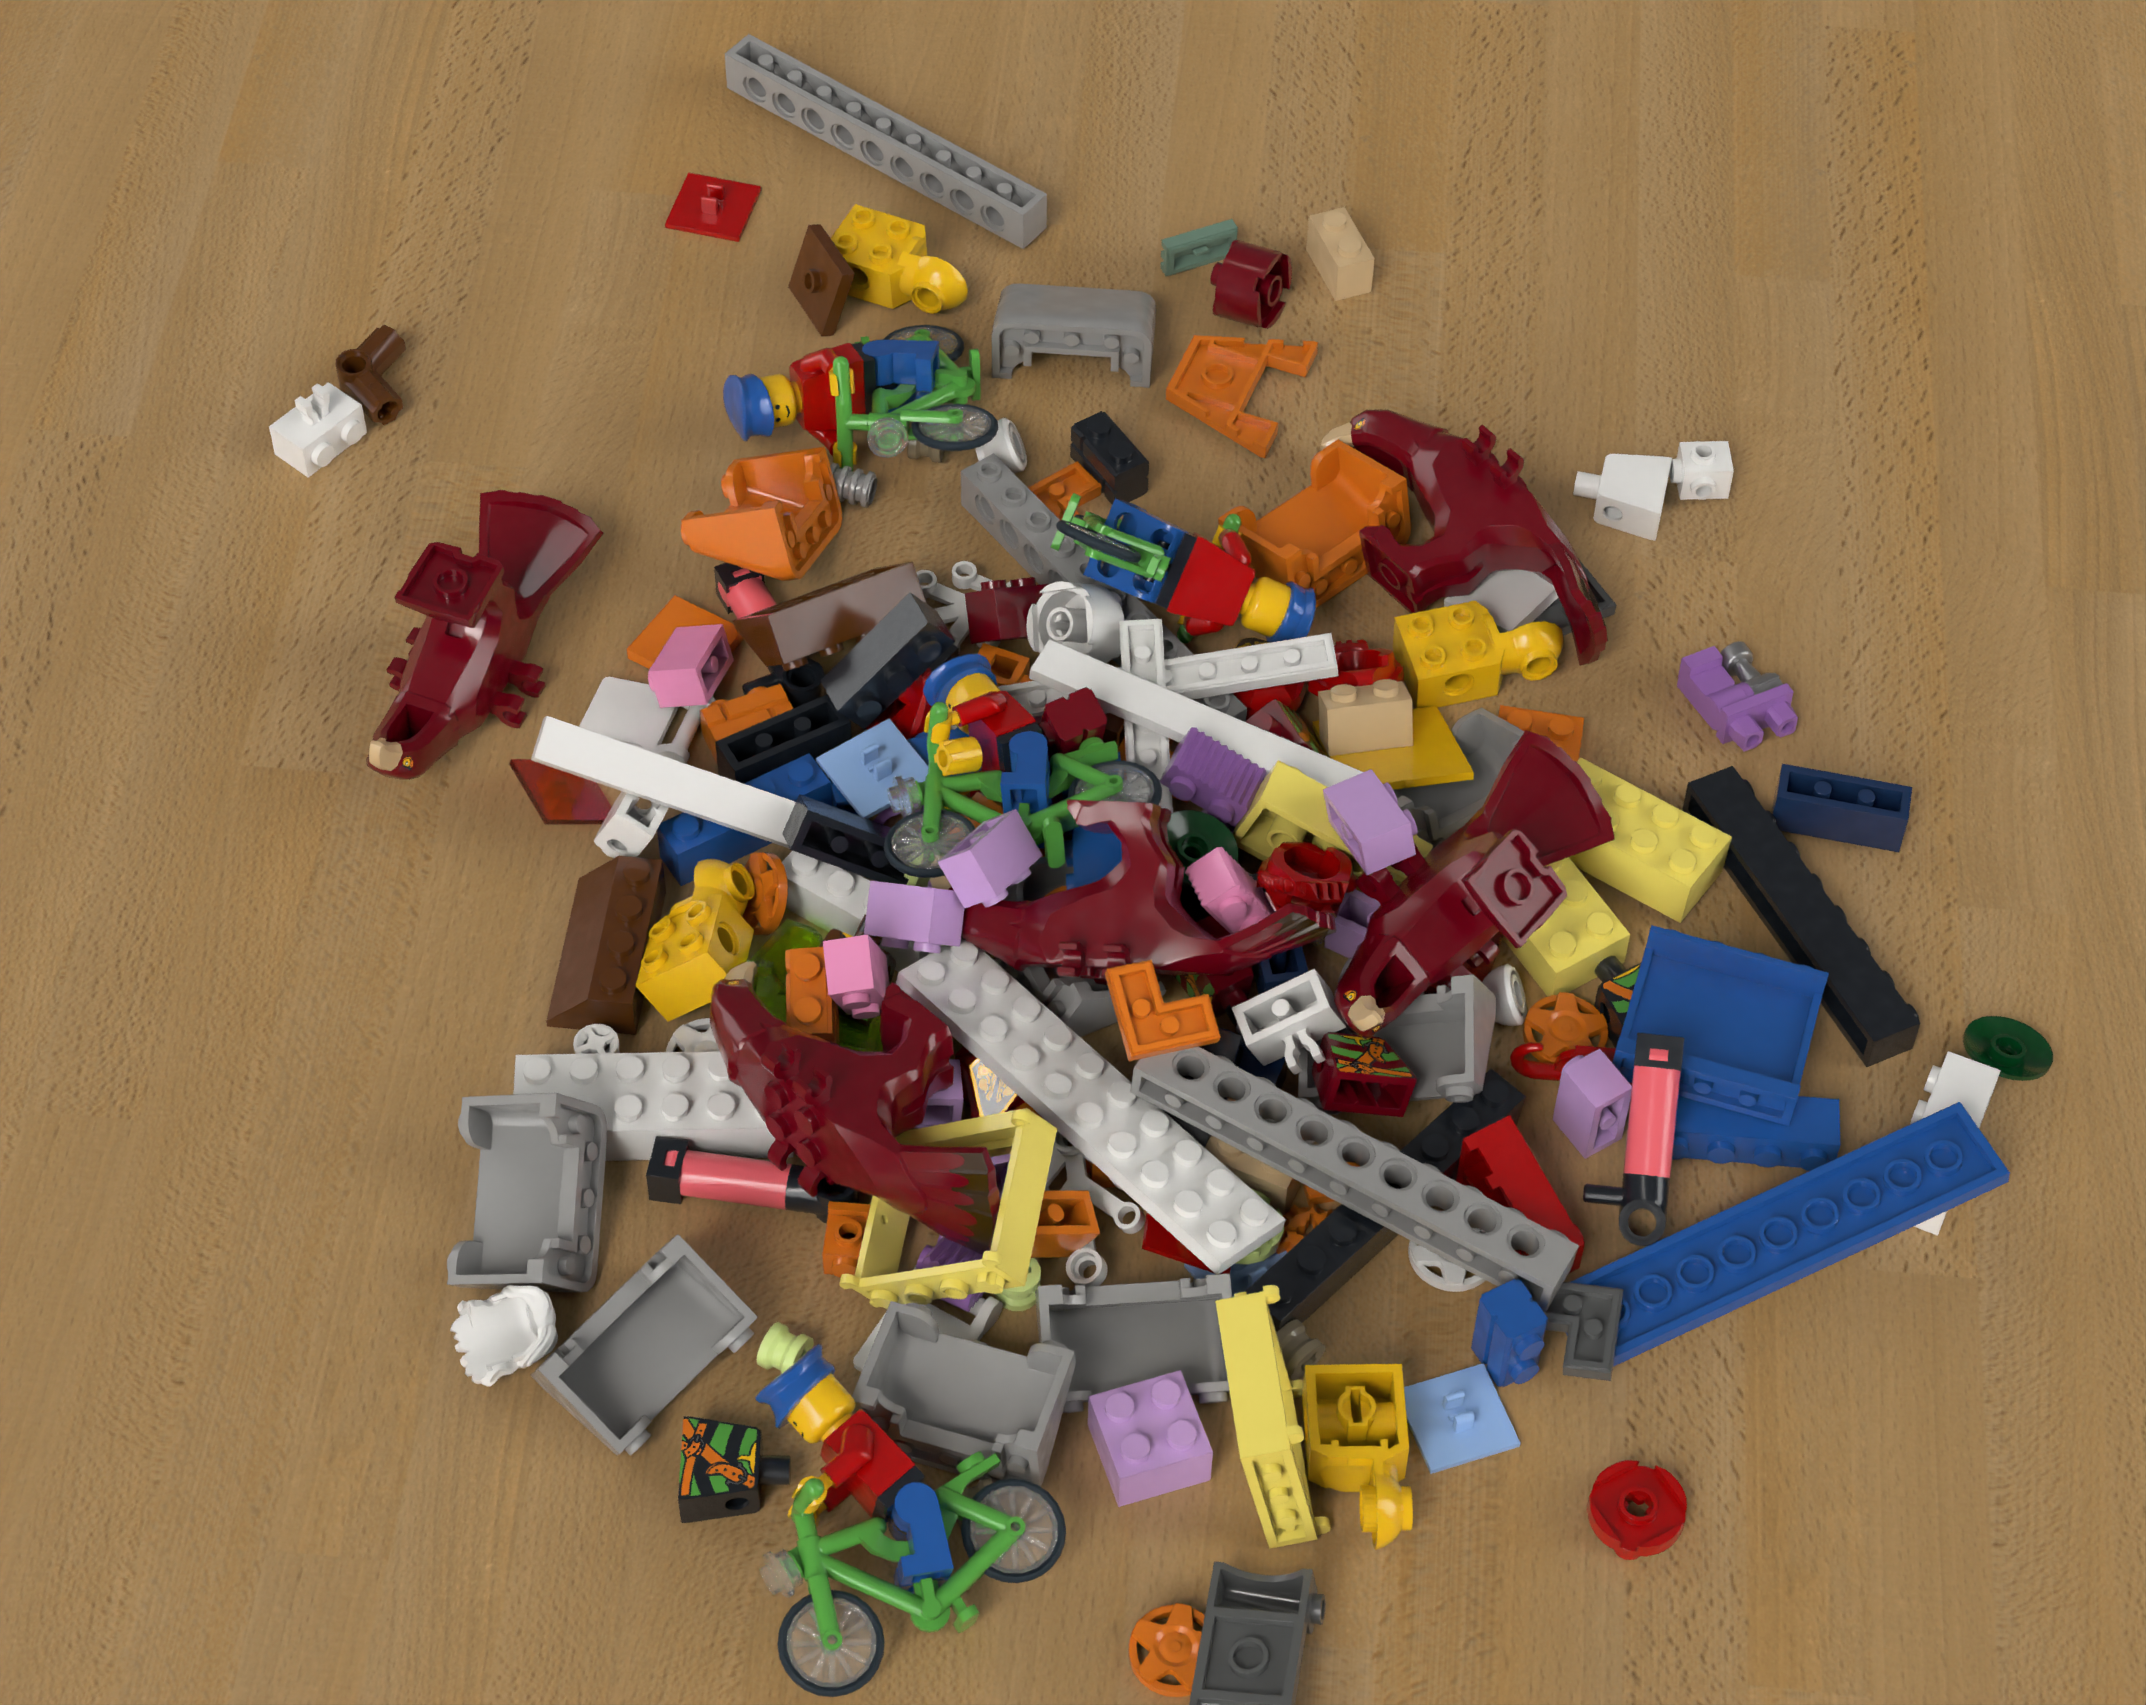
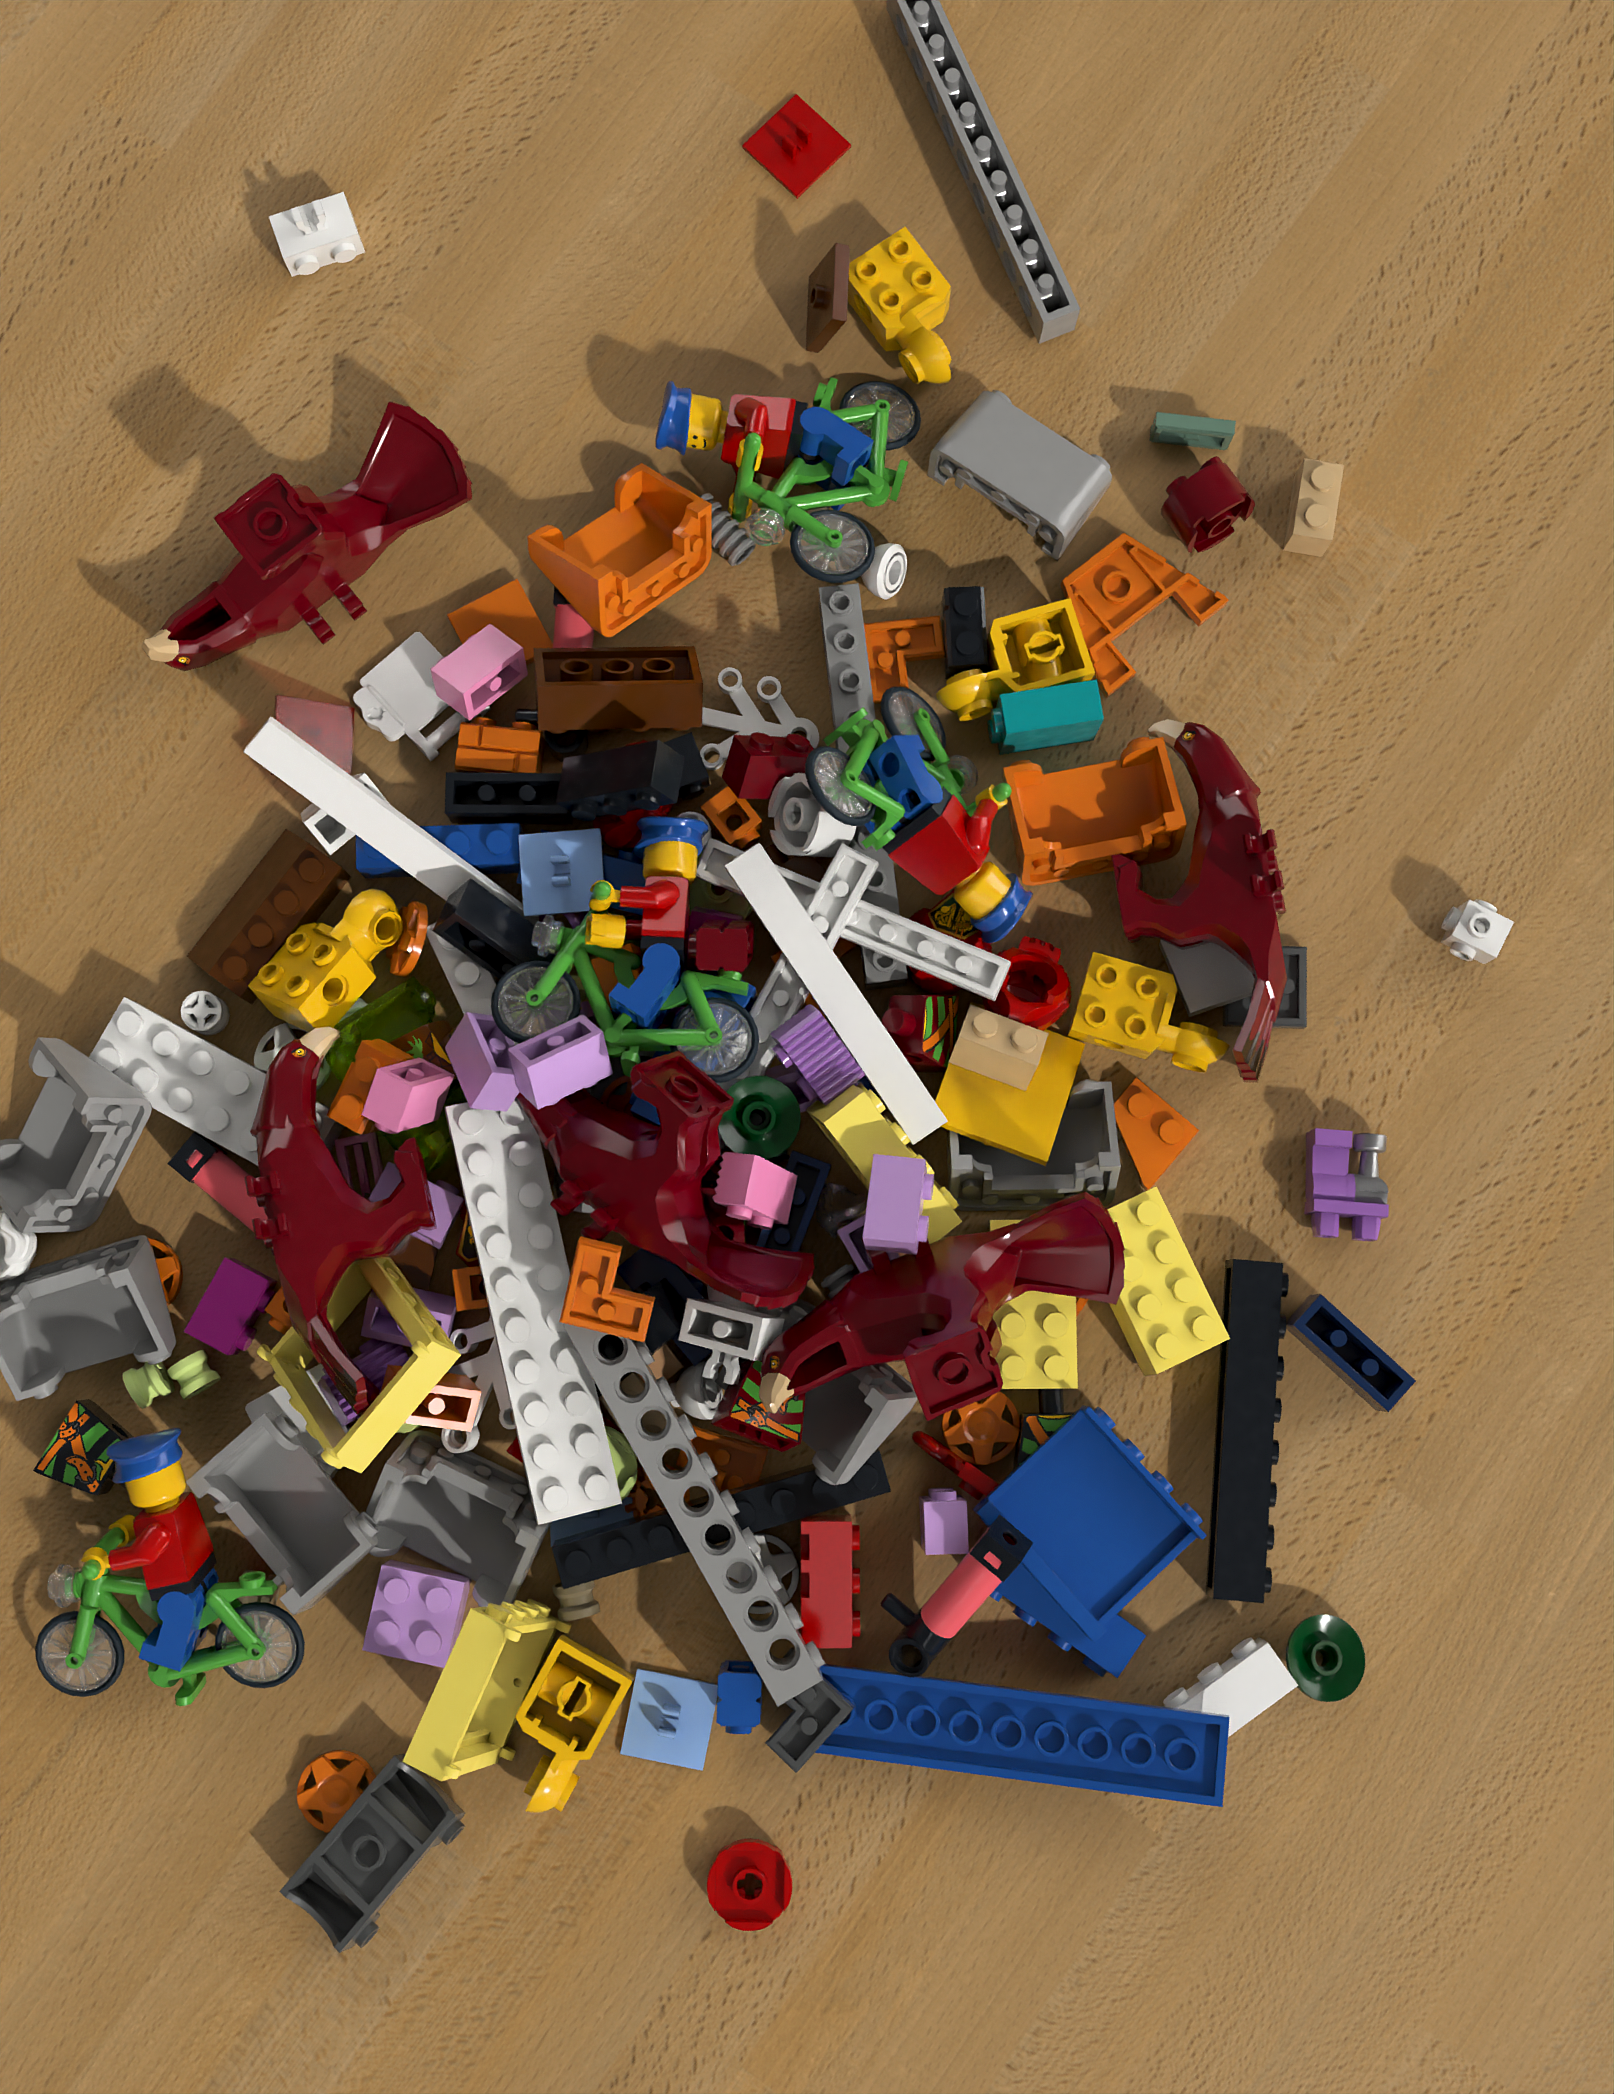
camera: 30 degrees right, 30 degrees up
(361, 372) = (381, 208): reddish brown piece -> none
(742, 1380) = (148, 1383): none -> yellowish green wheel
(786, 1274) = (231, 1307): none -> magenta brick
(1186, 446) = (1024, 653): none -> yellow brick
(1226, 474) = (1046, 717): none -> teal brick
(1307, 877) = (826, 1207): red helmet -> none
(1628, 492) = (1396, 916): white torso -> none

